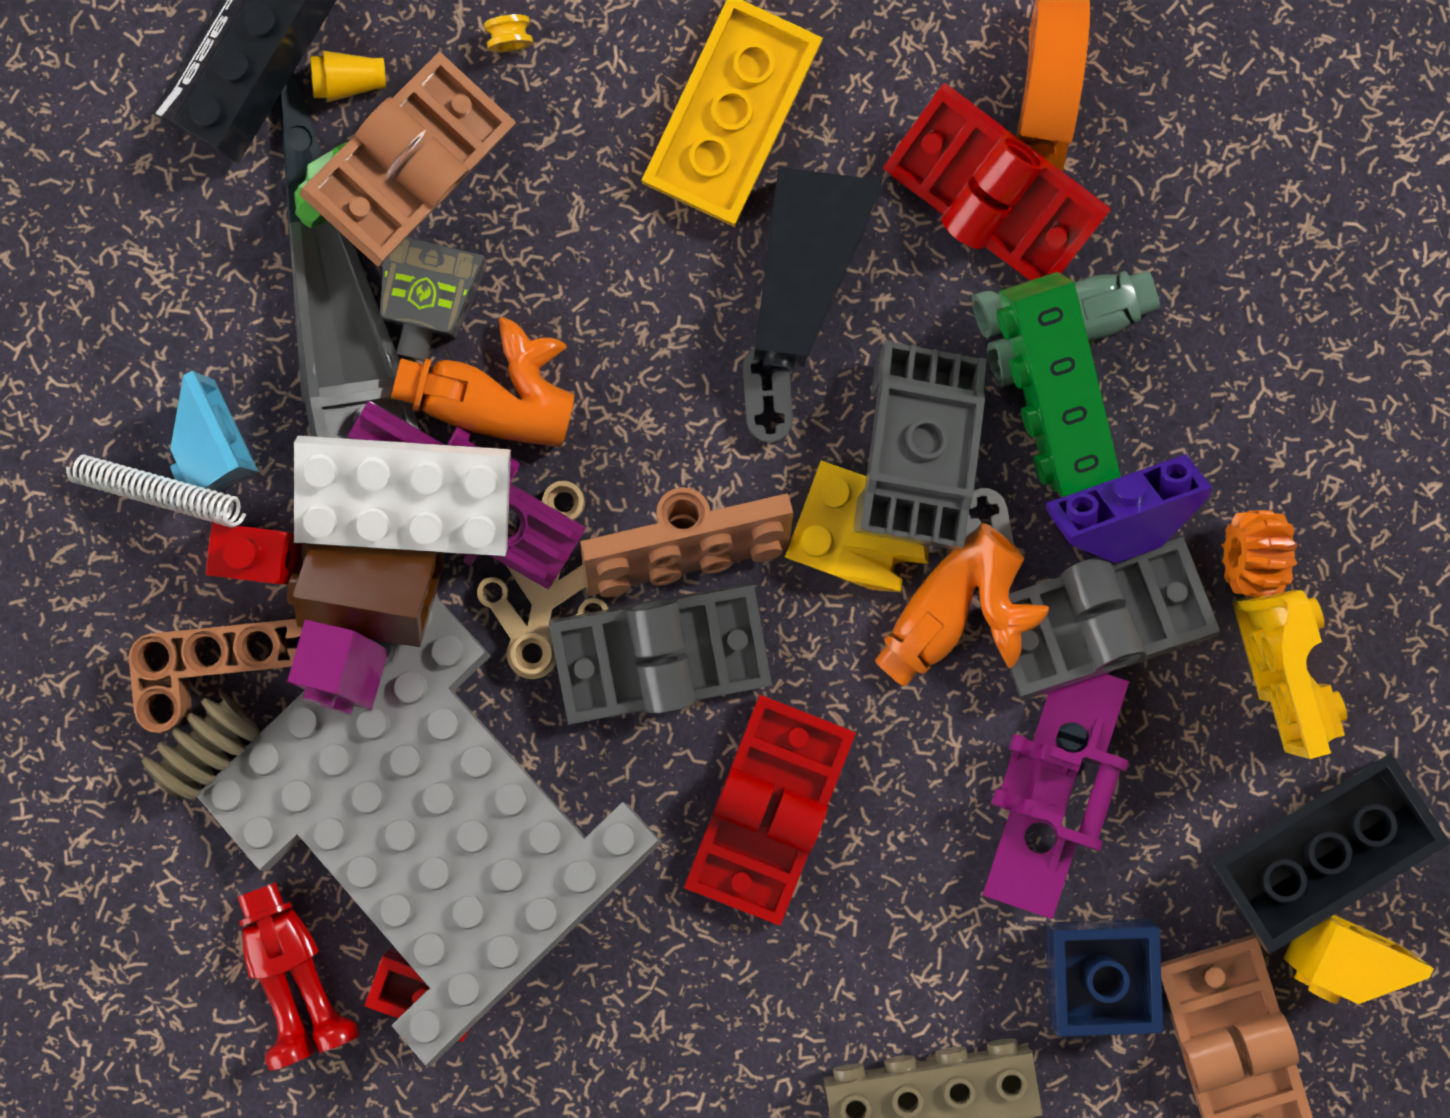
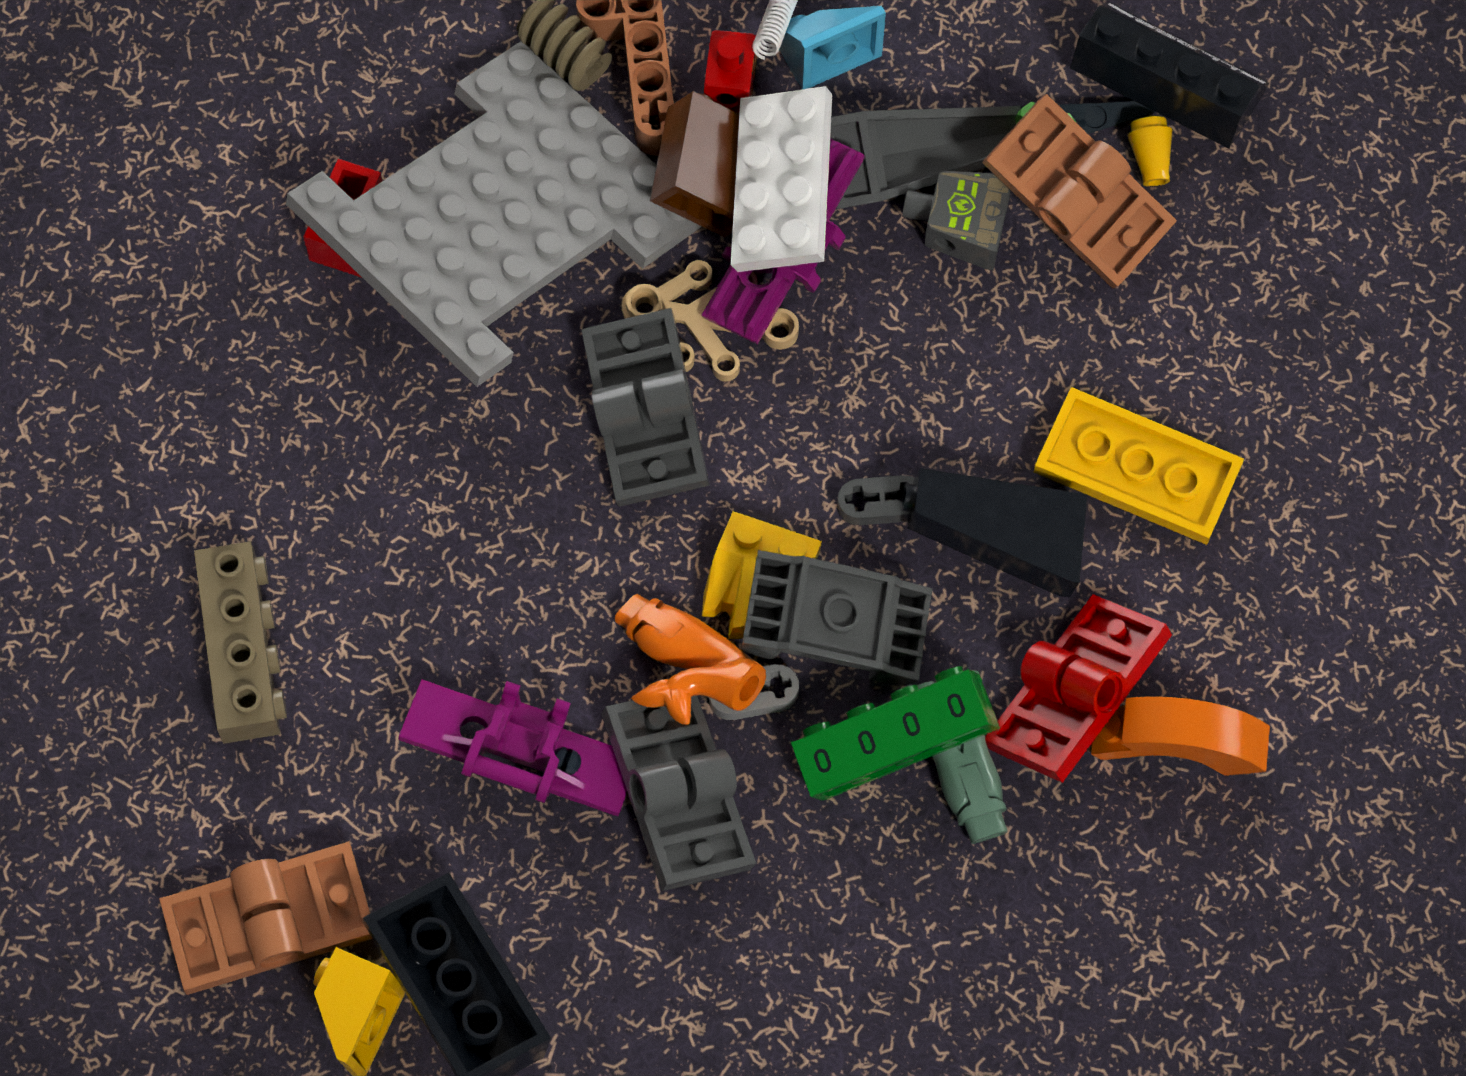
camera: 90 degrees right, 20 degrees down
(279, 944) = (389, 106): red piece -> none
(337, 667) = (632, 130): magenta brick -> none
(479, 404) = (865, 254): orange piece -> none
(508, 33) = (1197, 279): yellow bush -> none
(686, 541) = (745, 415): nougat plate -> none
(770, 810) = (503, 502): red plate -> none
(1104, 977) = (342, 787): dark blue brick -> none
(1132, 511) = (777, 803): dark purple slope -> none
(1259, 553) = (740, 925): orange gear -> none
(1277, 641) = (612, 941): yellow slope -> none

